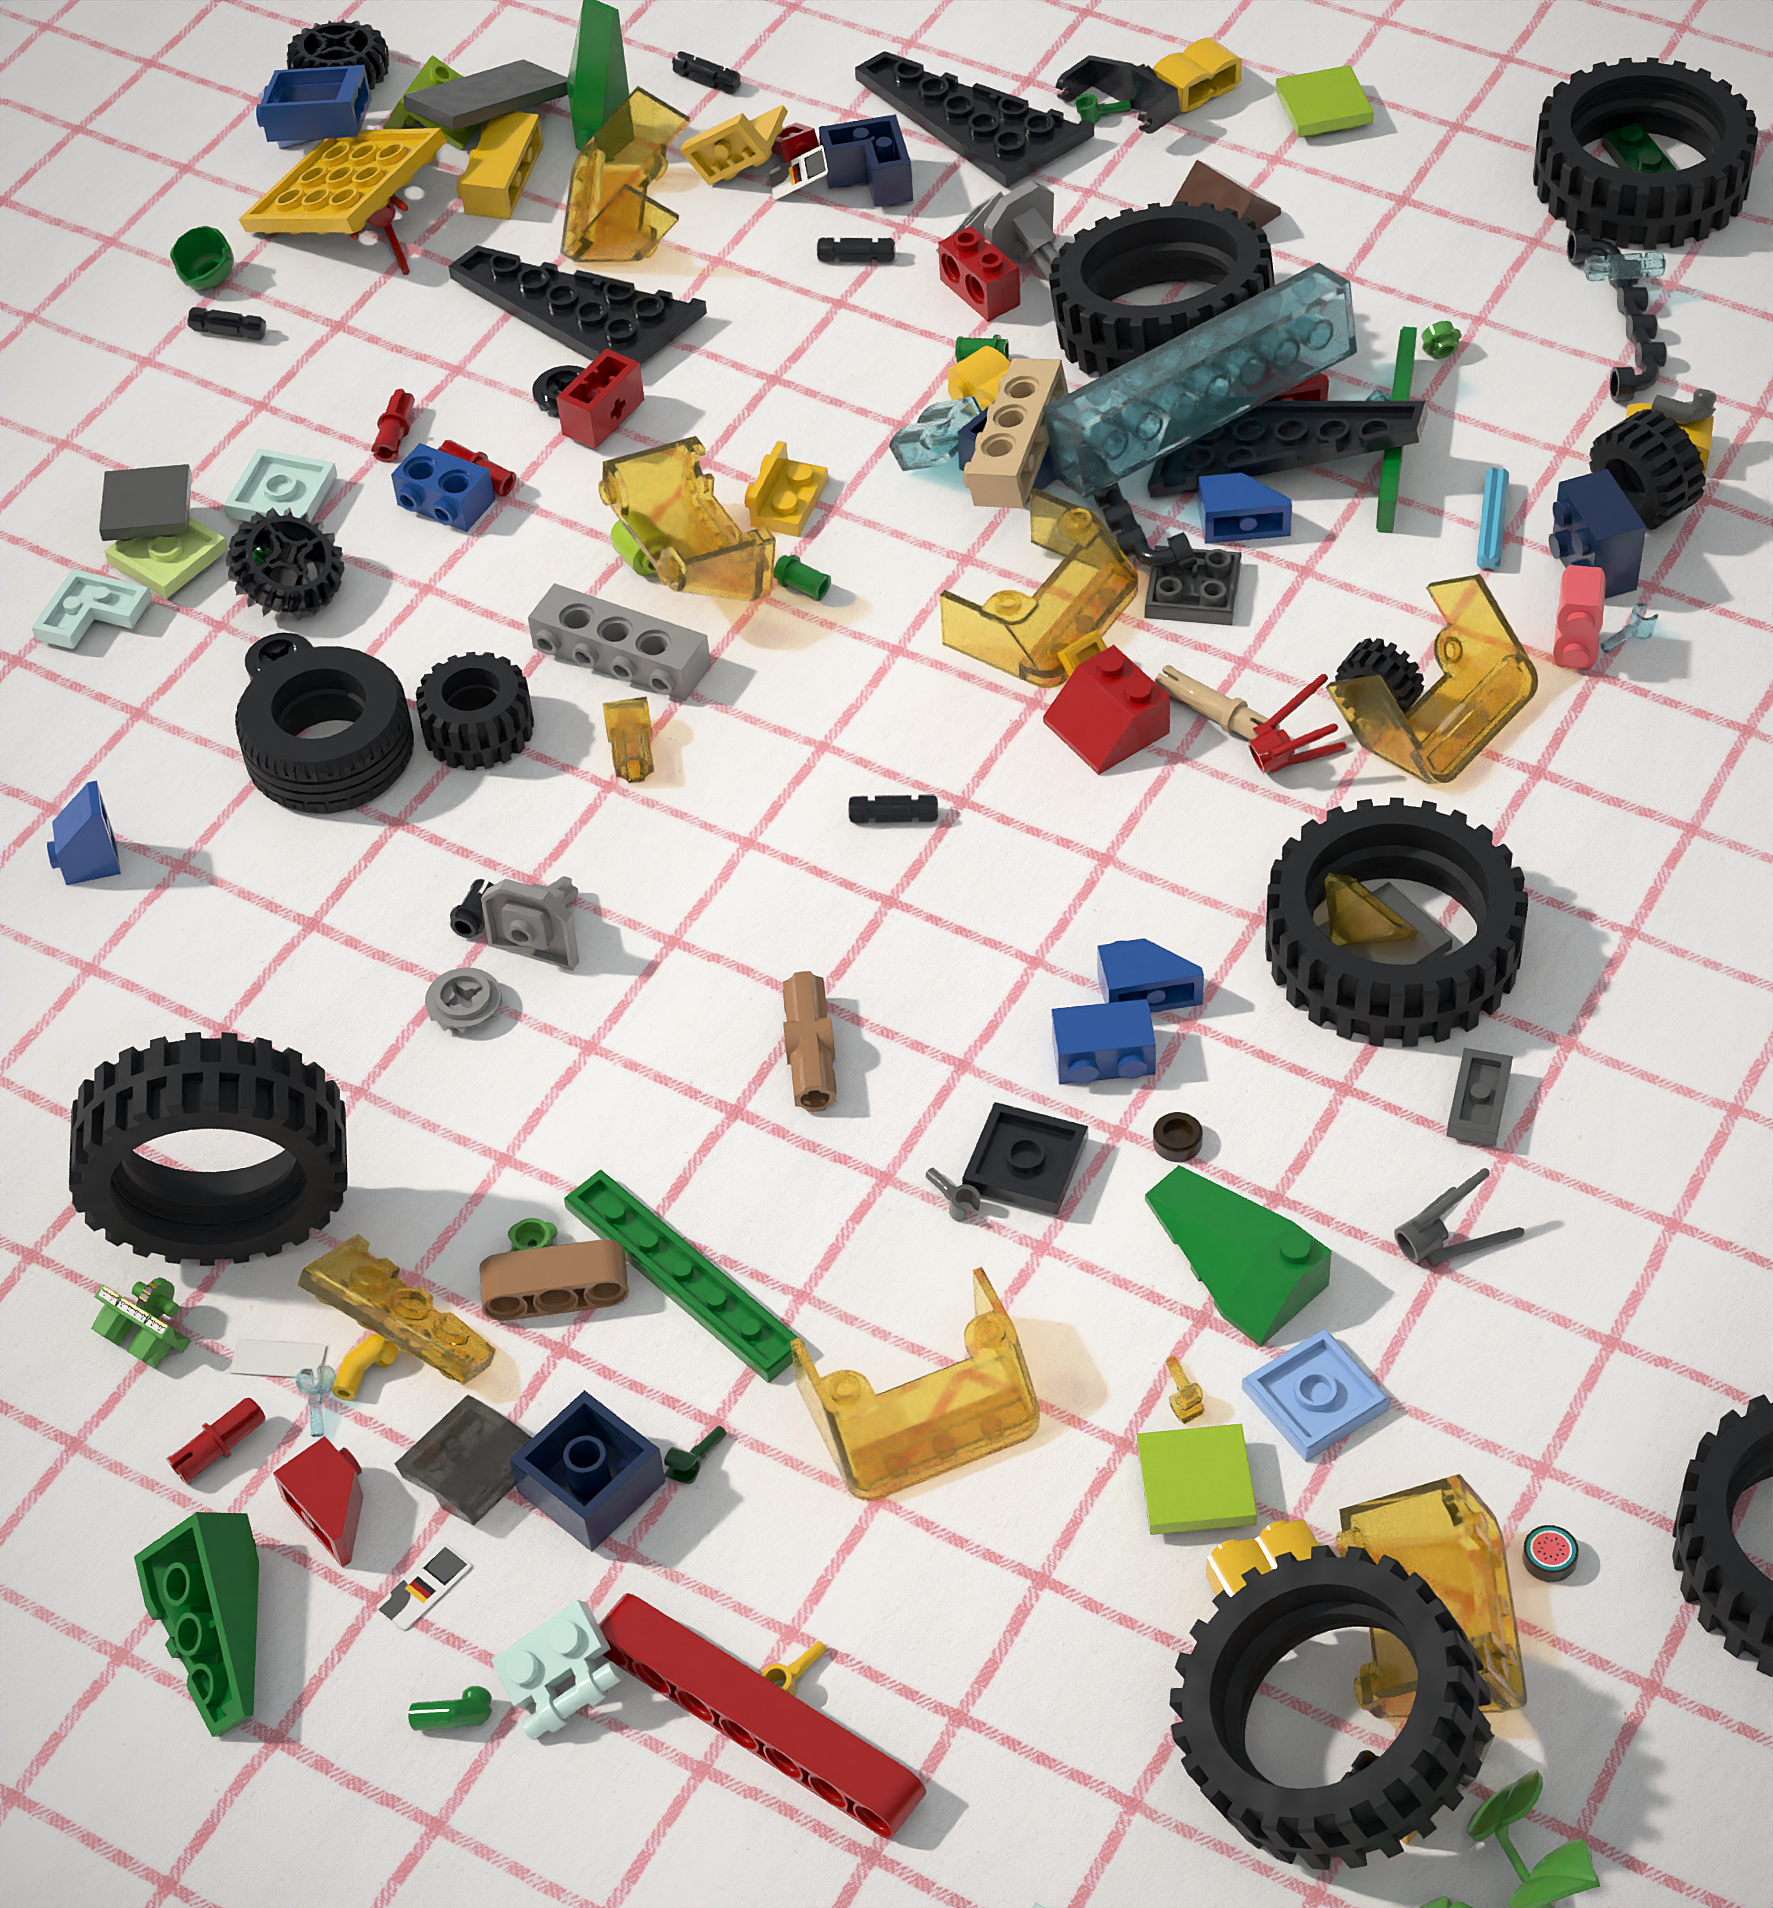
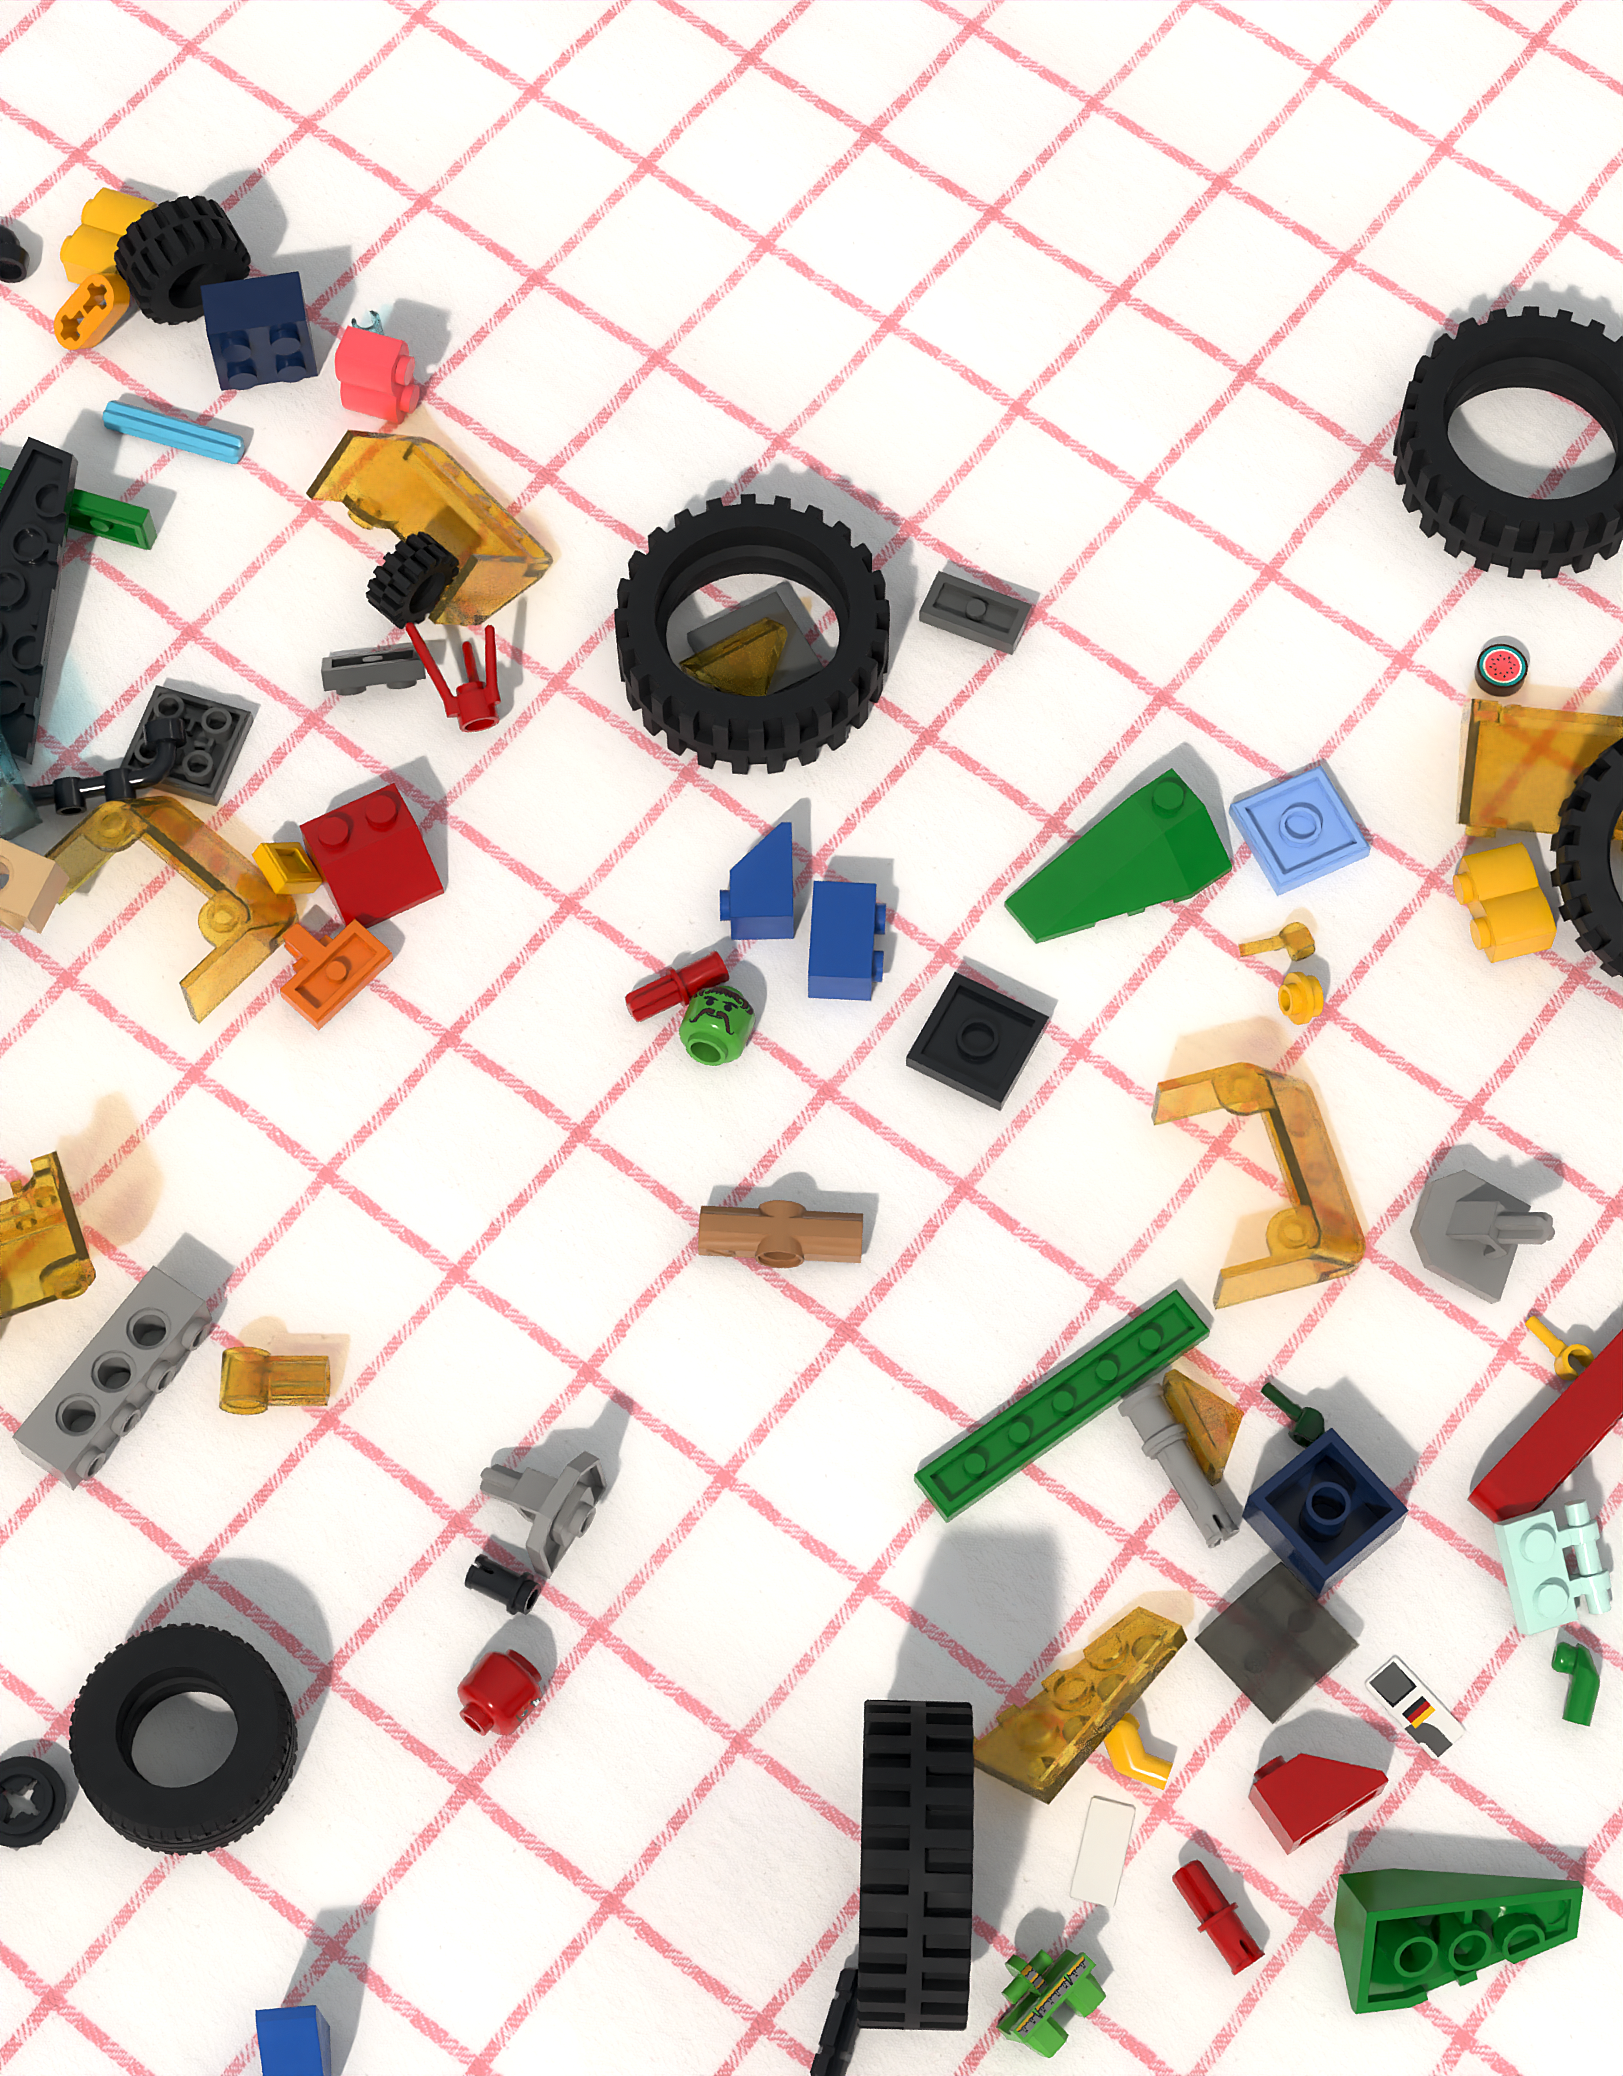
camera: 85 degrees left, 15 degrees up
(315, 1393) = (1165, 1805): clear light blue hand -> none
(381, 919) = (499, 1693): none -> red head
(468, 983) = (648, 1585): light grey gear -> none
(475, 710) = (181, 1513): black tyre -> none
(532, 1231) = (1011, 1546): bright green plate -> none
(553, 1280) = (1060, 1536): medium nougat beam -> none
(650, 1351) = (1167, 1443): none -> light grey pin
(672, 1378) = (1209, 1422): none -> clear yellow slope
(793, 573) = (70, 1147): green pin -> none
(893, 808) = (453, 1107): black axle -> none
(897, 1572) = (1473, 1231): none -> light grey piece
(955, 1194) = (1009, 1119): dark grey hand -> none
(1000, 707) = (331, 970): none -> orange hinge
(1000, 965) = (717, 1025): none -> bright green head
(1036, 937) = (676, 987): none -> red axle
(1123, 1406) = (1300, 997): none -> yellow plate
(1177, 1137) = (967, 896): dark brown tile -> none
(1196, 1479) = (1391, 948): lime tile -> none
(1230, 713) = (401, 740): tan pin -> none
(1241, 509) = (89, 673): blue slope -> none
(1290, 675) = (354, 672): none -> dark grey plate
(1425, 1233) = (1137, 694): dark grey plant -> none
(1580, 431) = (97, 318): none -> light orange beam
(1690, 411) = (103, 201): dark grey arm -> none

